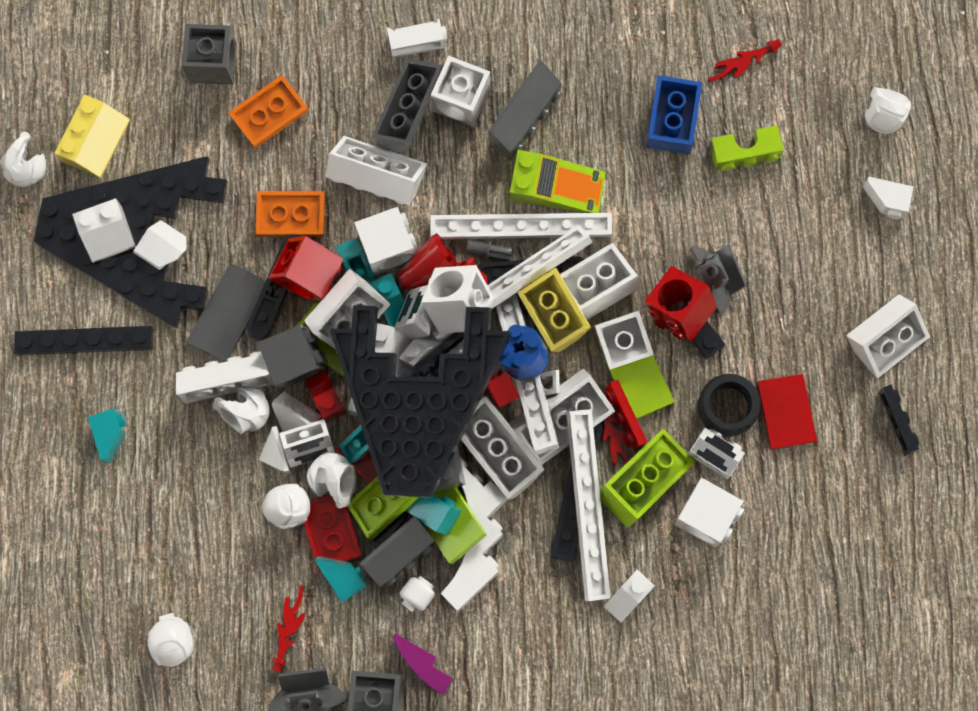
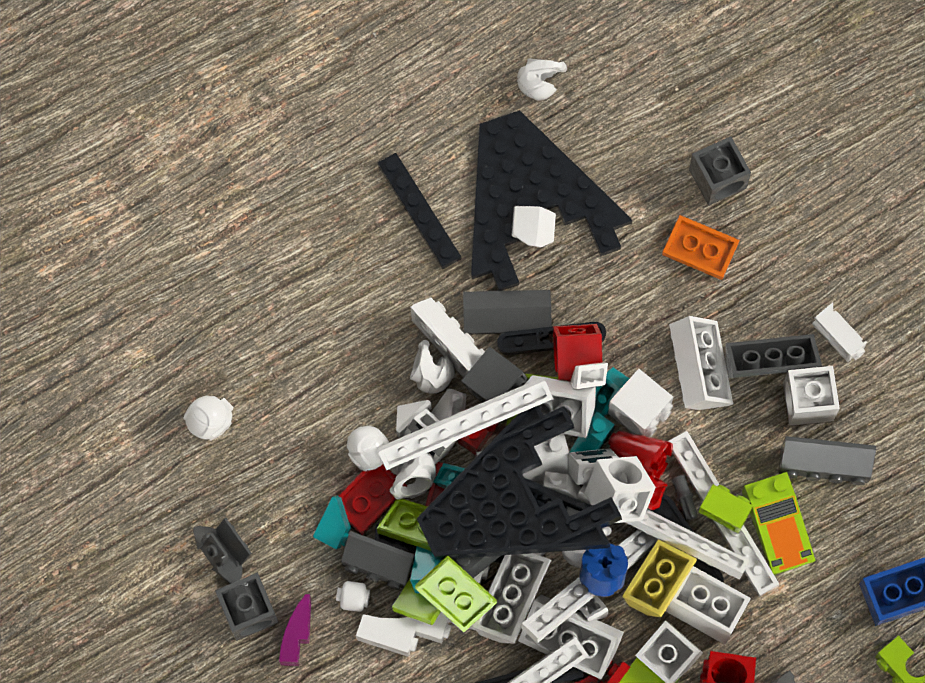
camera: 60 degrees right, 5 degrees down
(92, 136) = (594, 119): light yellow slope -> none
(104, 230) = (518, 173): white slope -> none
(108, 432) = (352, 272): teal slope -> none
(290, 213) = (621, 314): orange plate -> none
(291, 626) = (272, 508): red piece -> none
(318, 403) = (464, 423): none -> white plate
(337, 269) = (589, 375): none -> white slope
(472, 497) = (455, 593): none -> lime tile
(501, 389) = (564, 569): red arch -> none
(521, 219) = (726, 508): none -> lime brick

